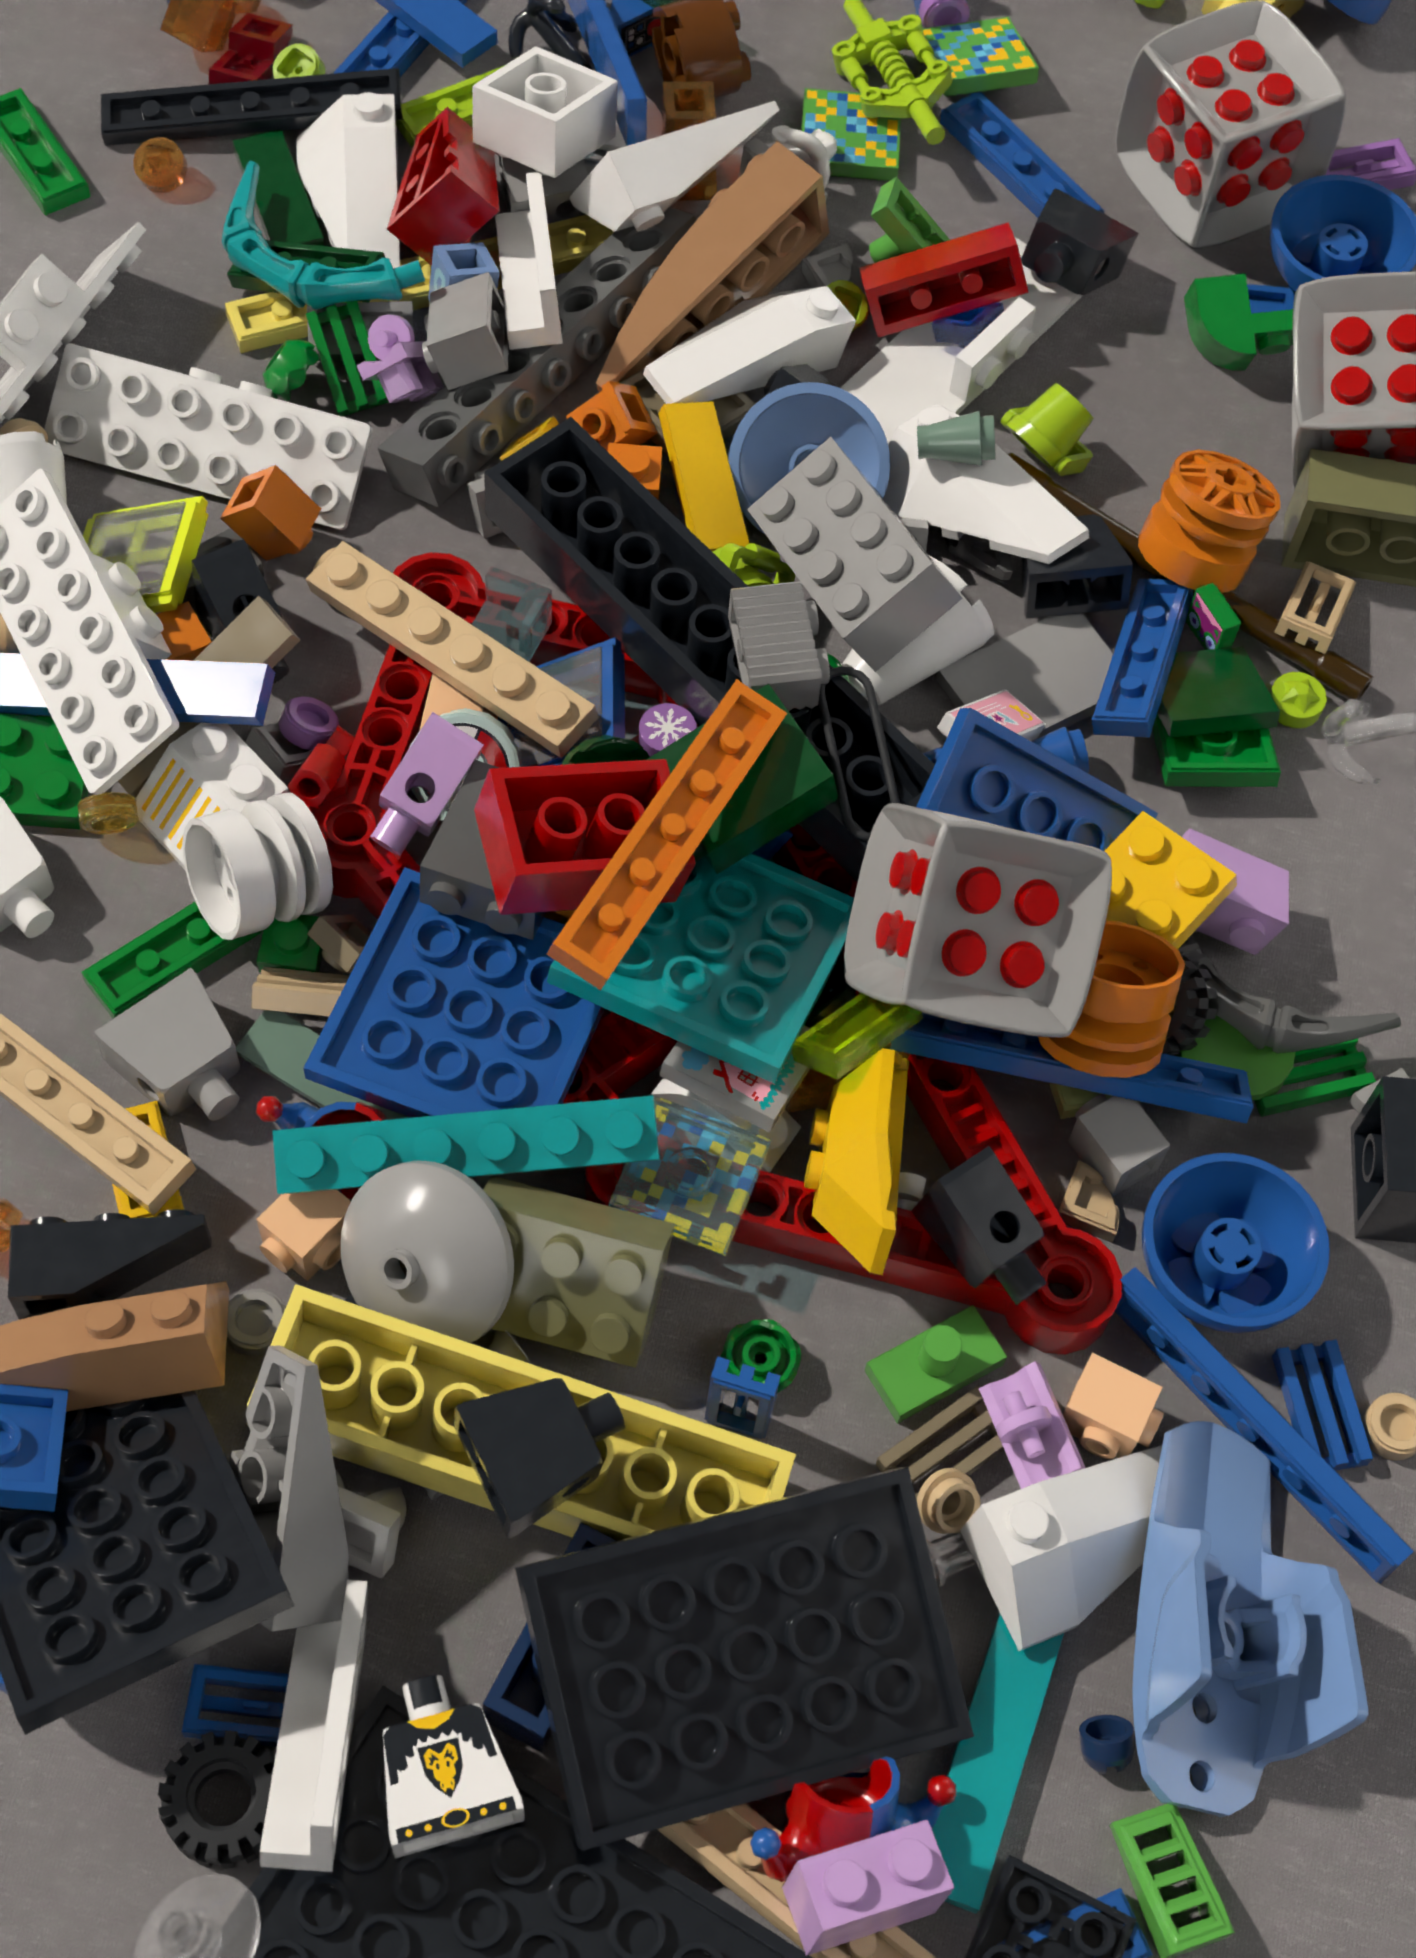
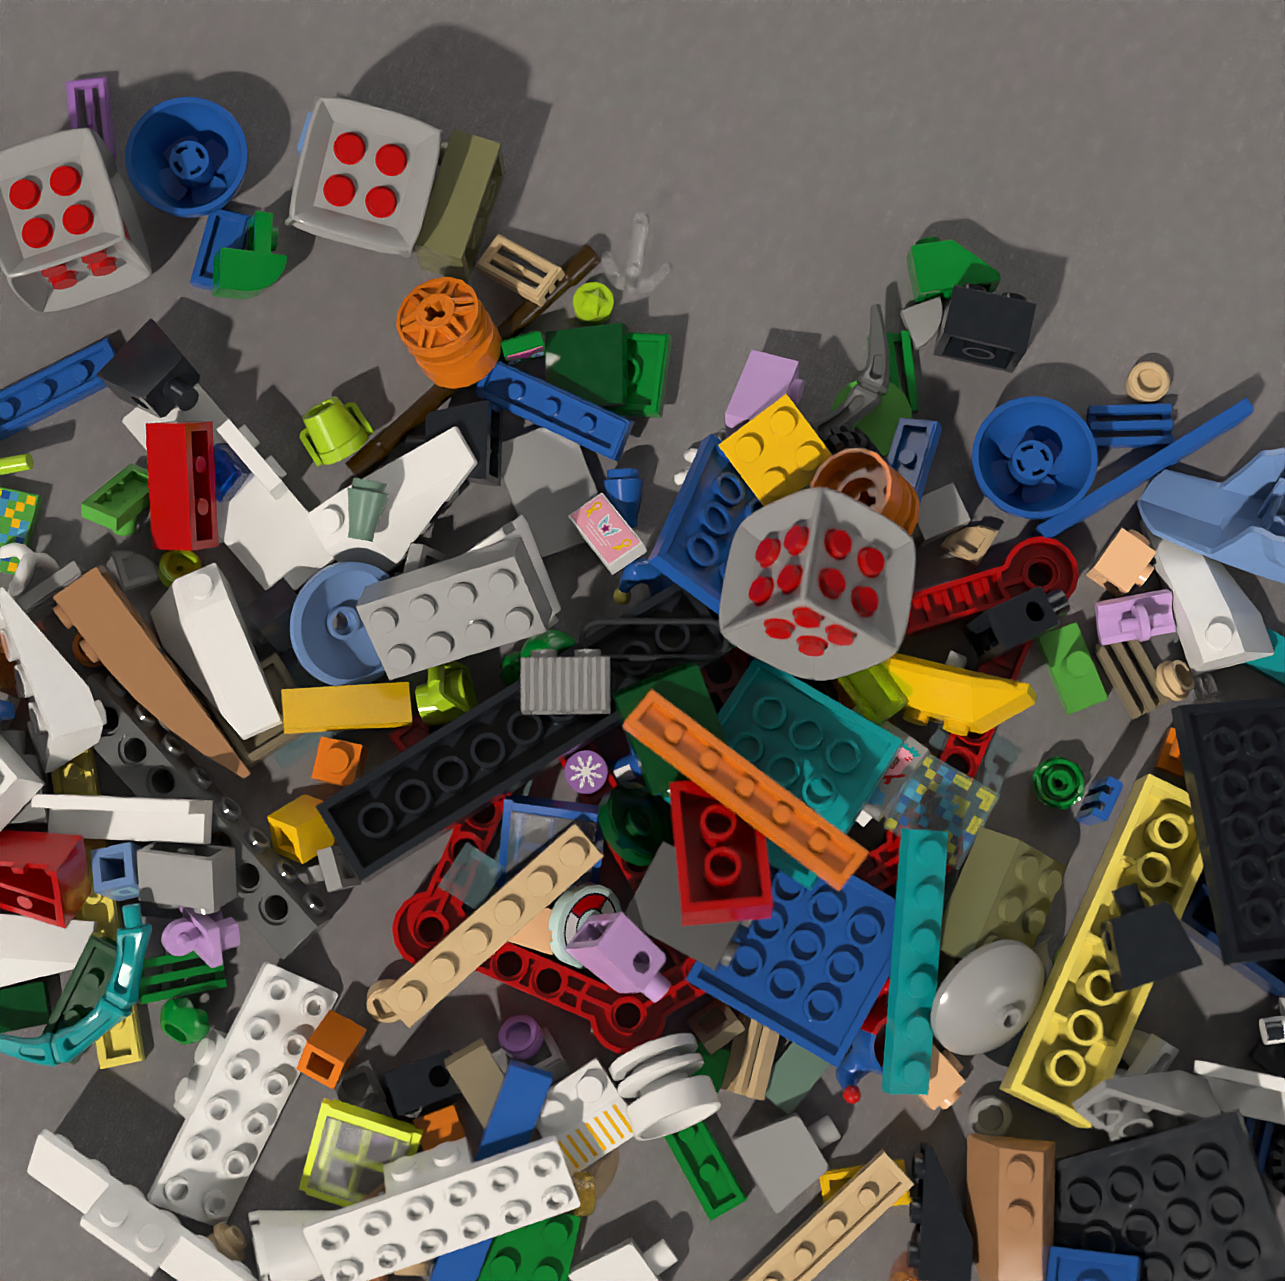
camera: 75 degrees left, 20 degrees up
(322, 768) = (574, 1030): red bar -> none
(620, 414) = (286, 779): orange brick -> none

